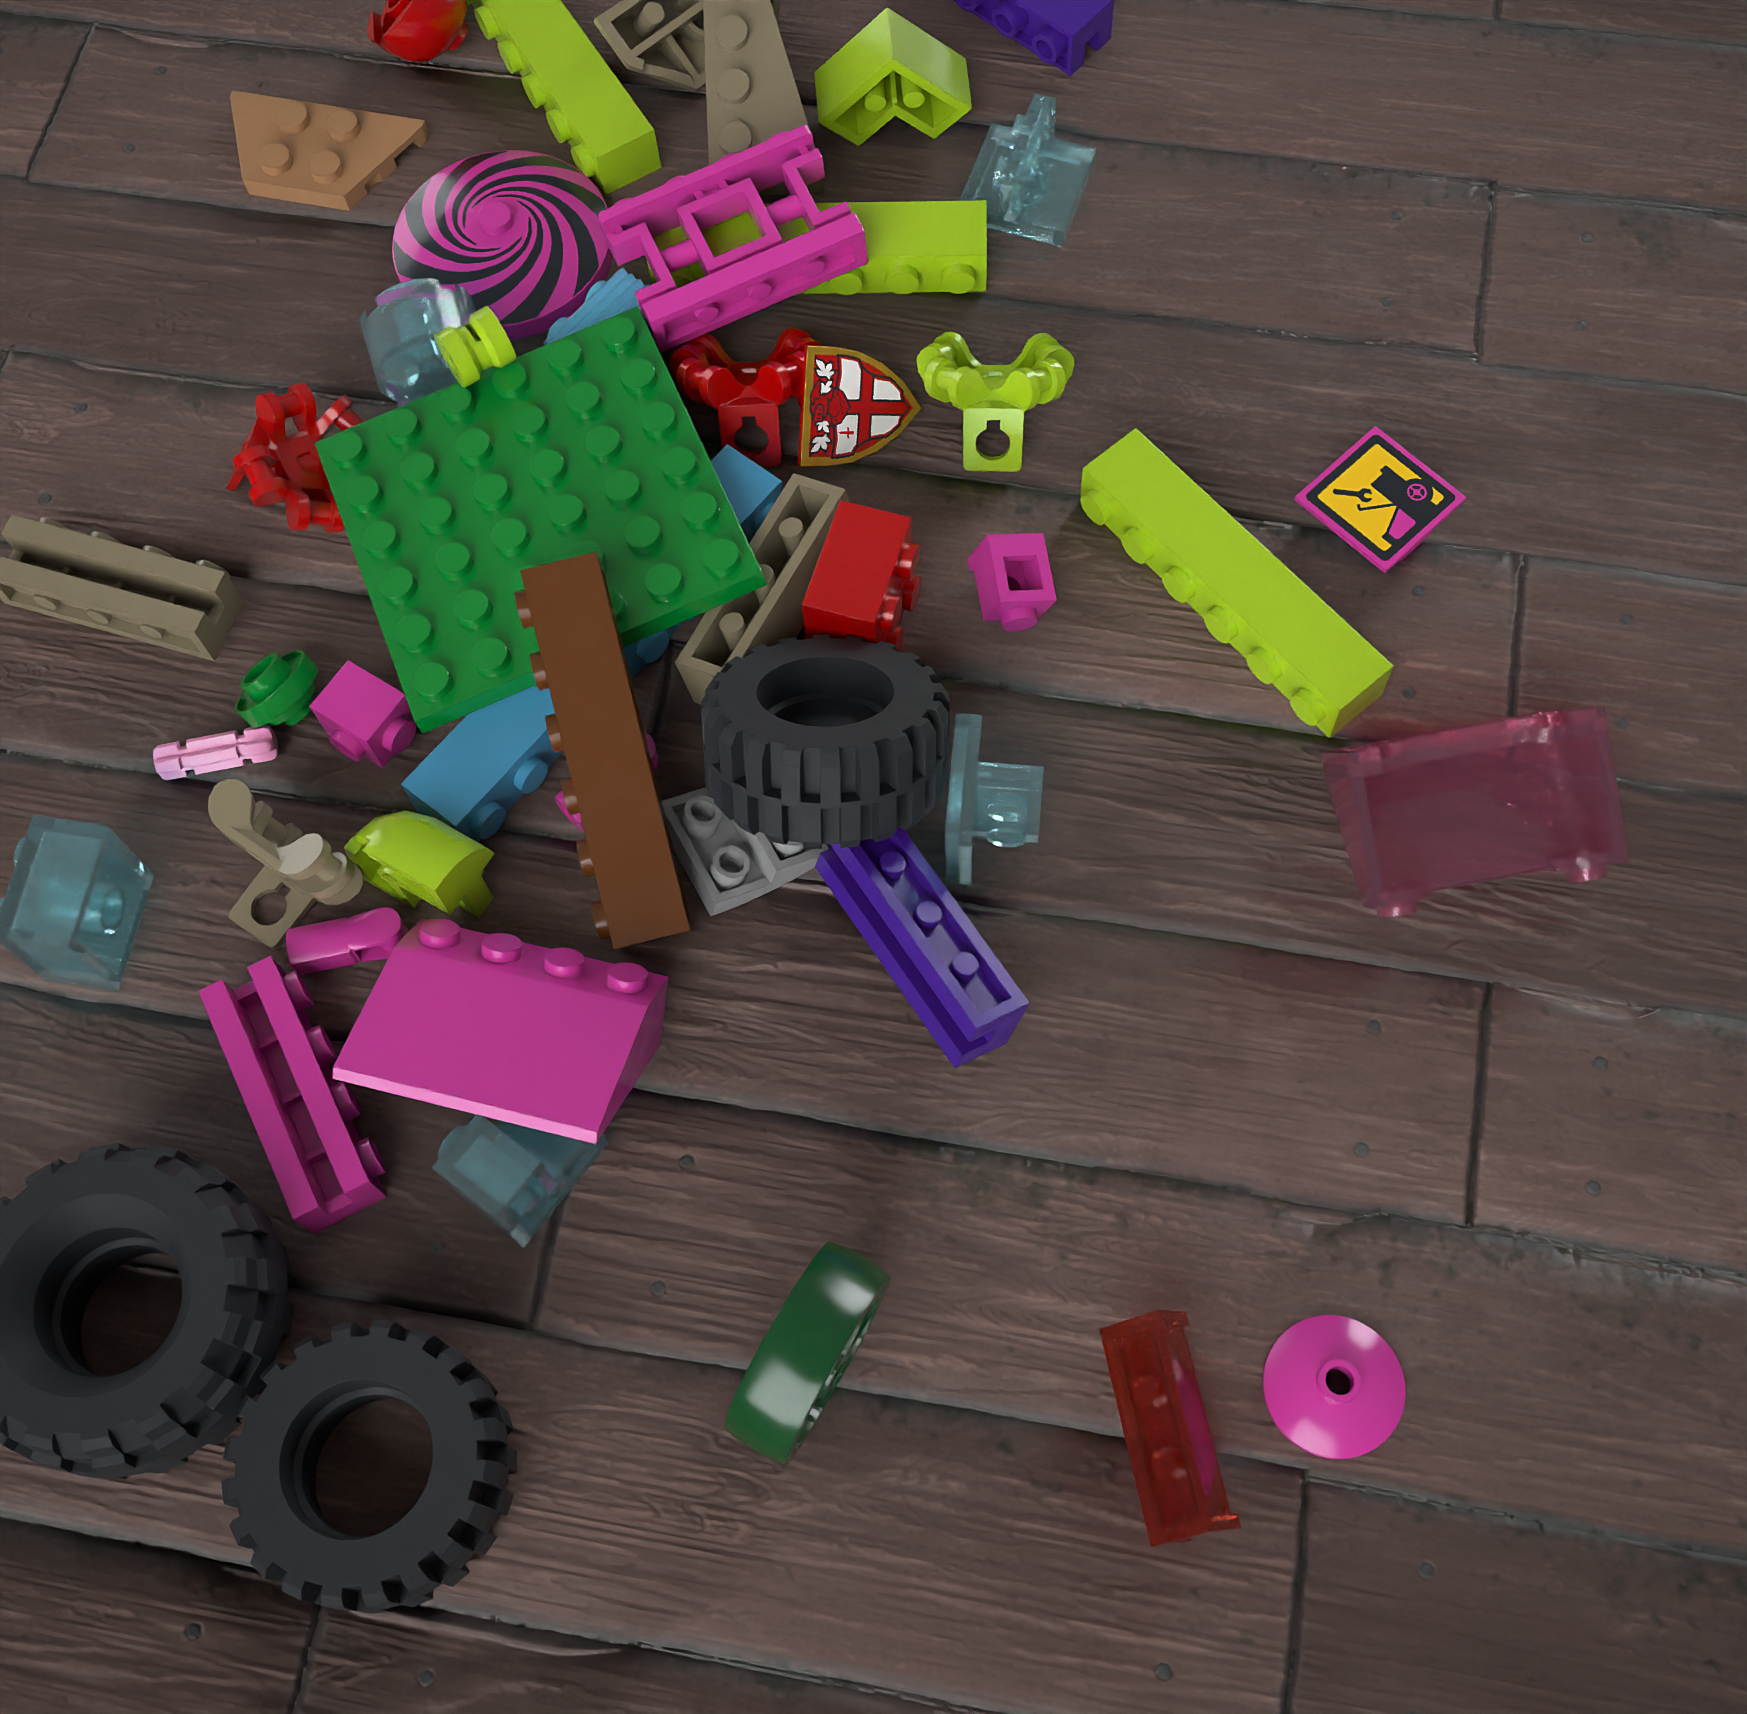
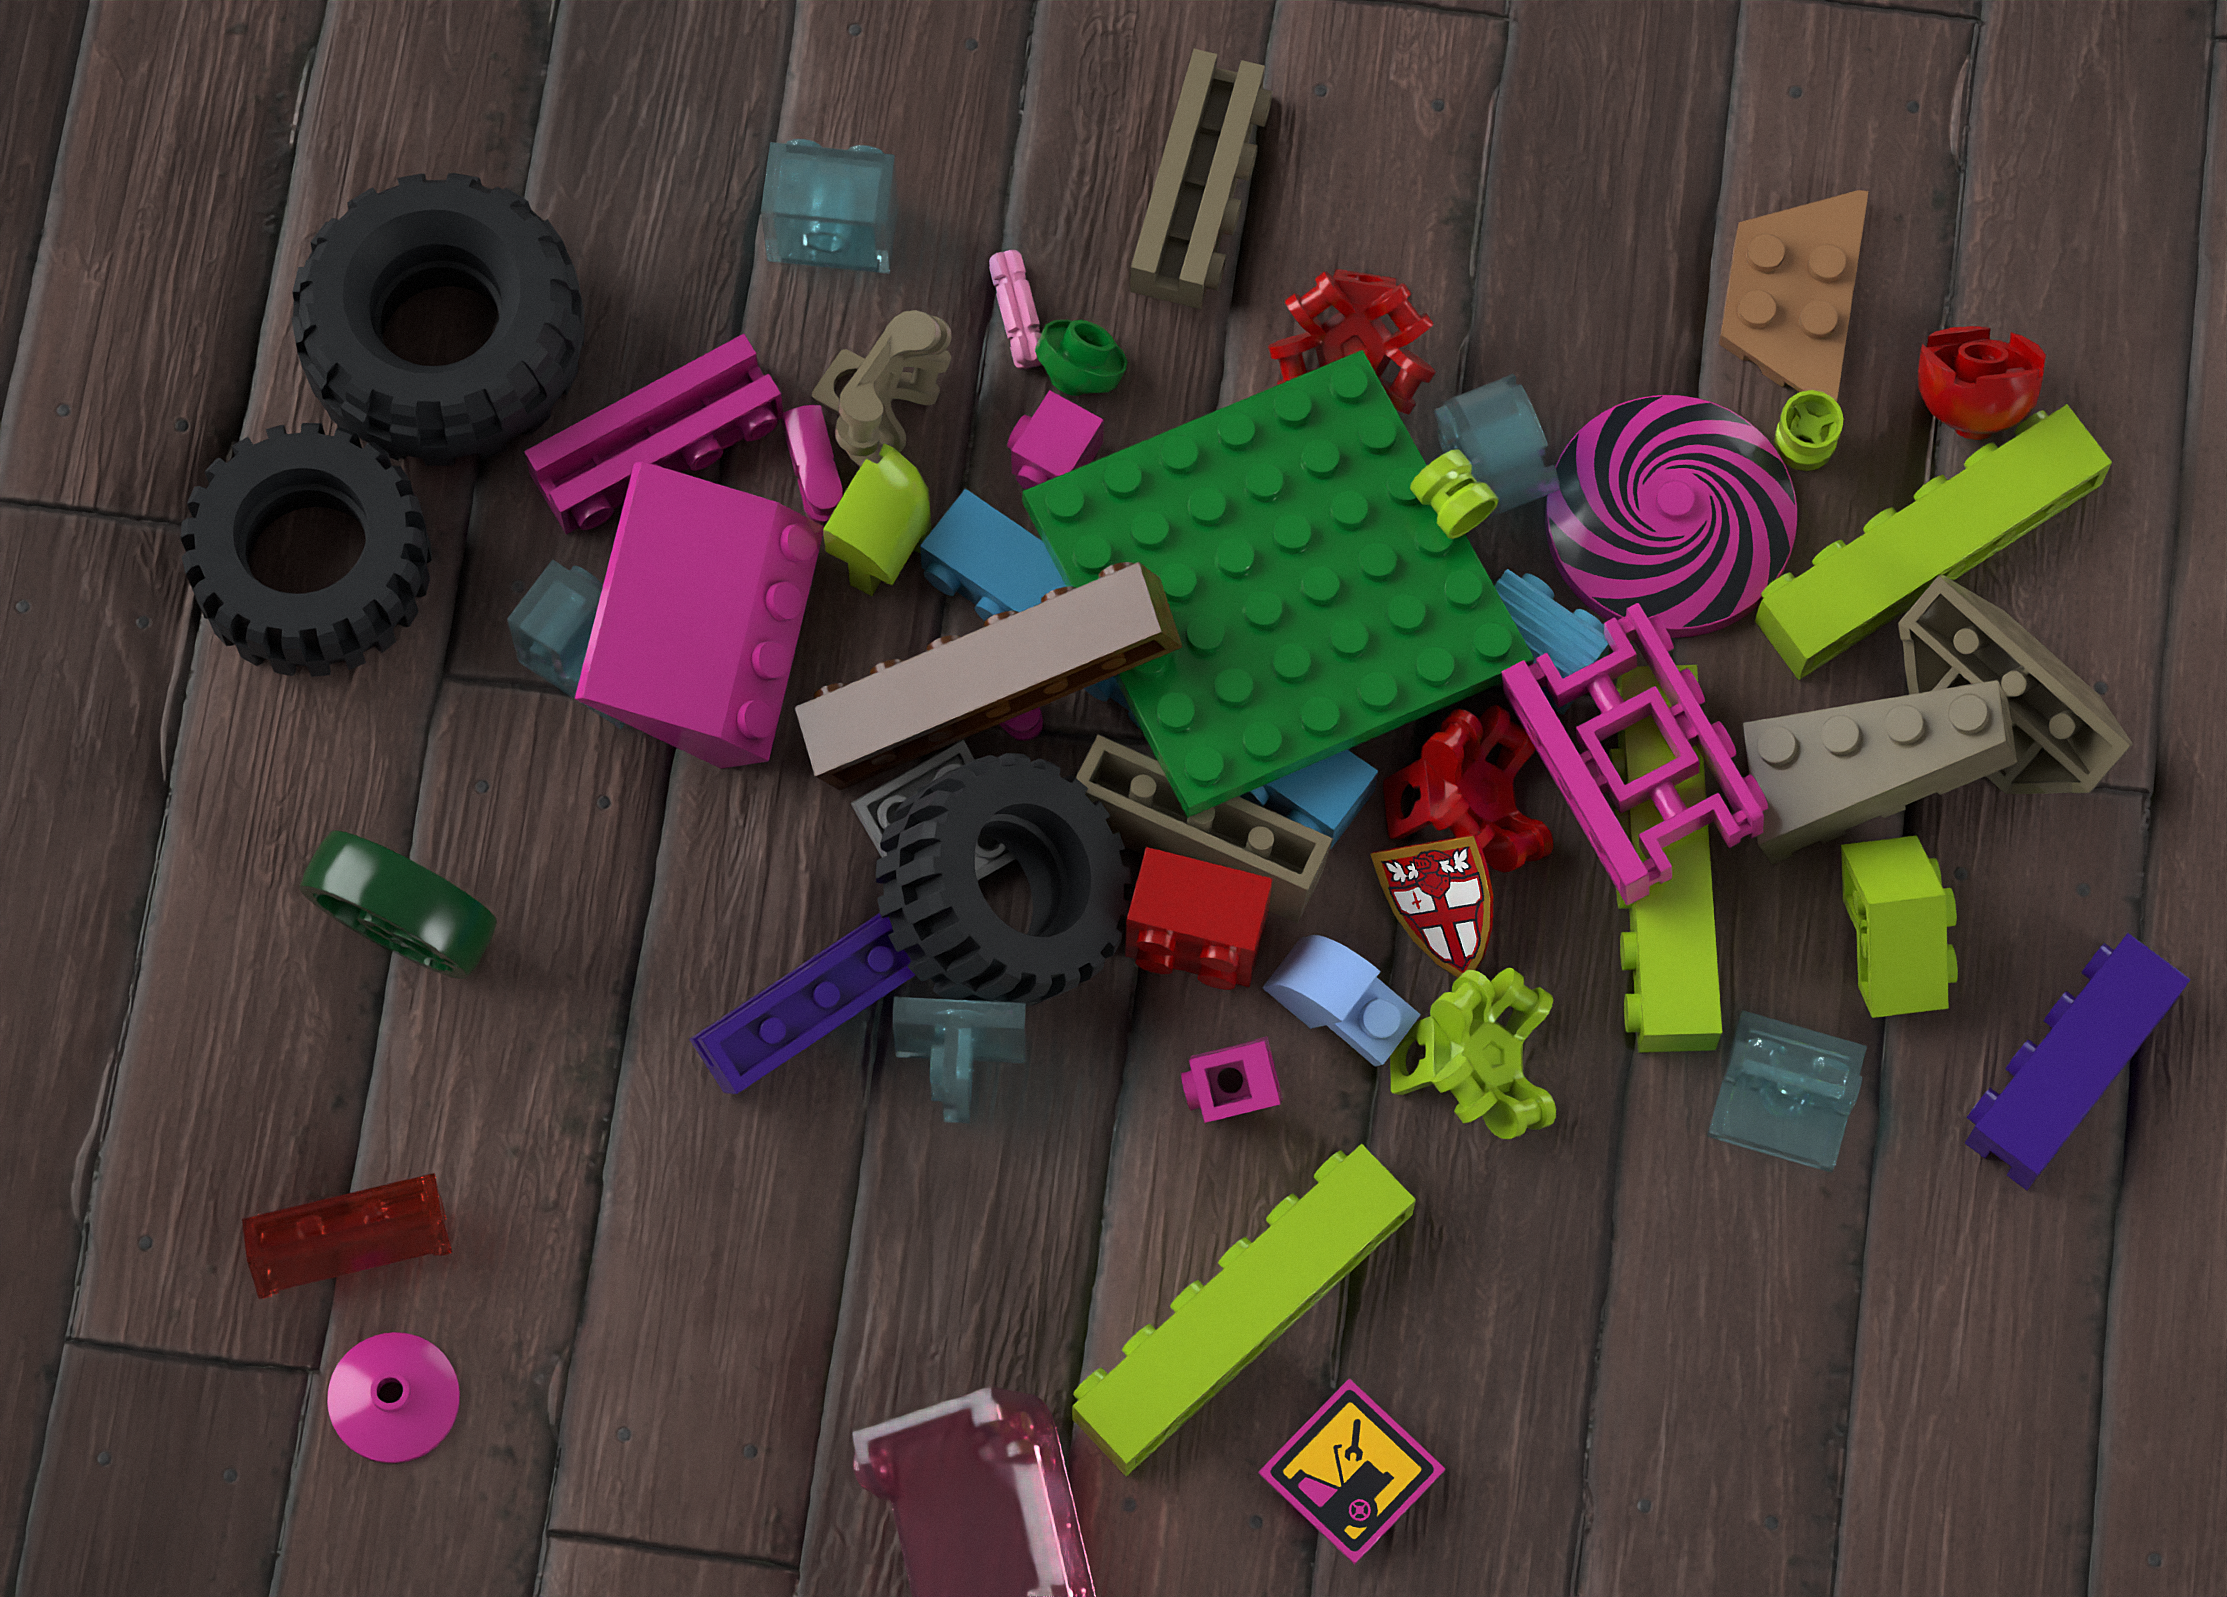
camera: 80 degrees right, 5 degrees up
(441, 132) = (1814, 418): none -> lime wheel
(936, 482) = (1341, 989): none -> light blue brick

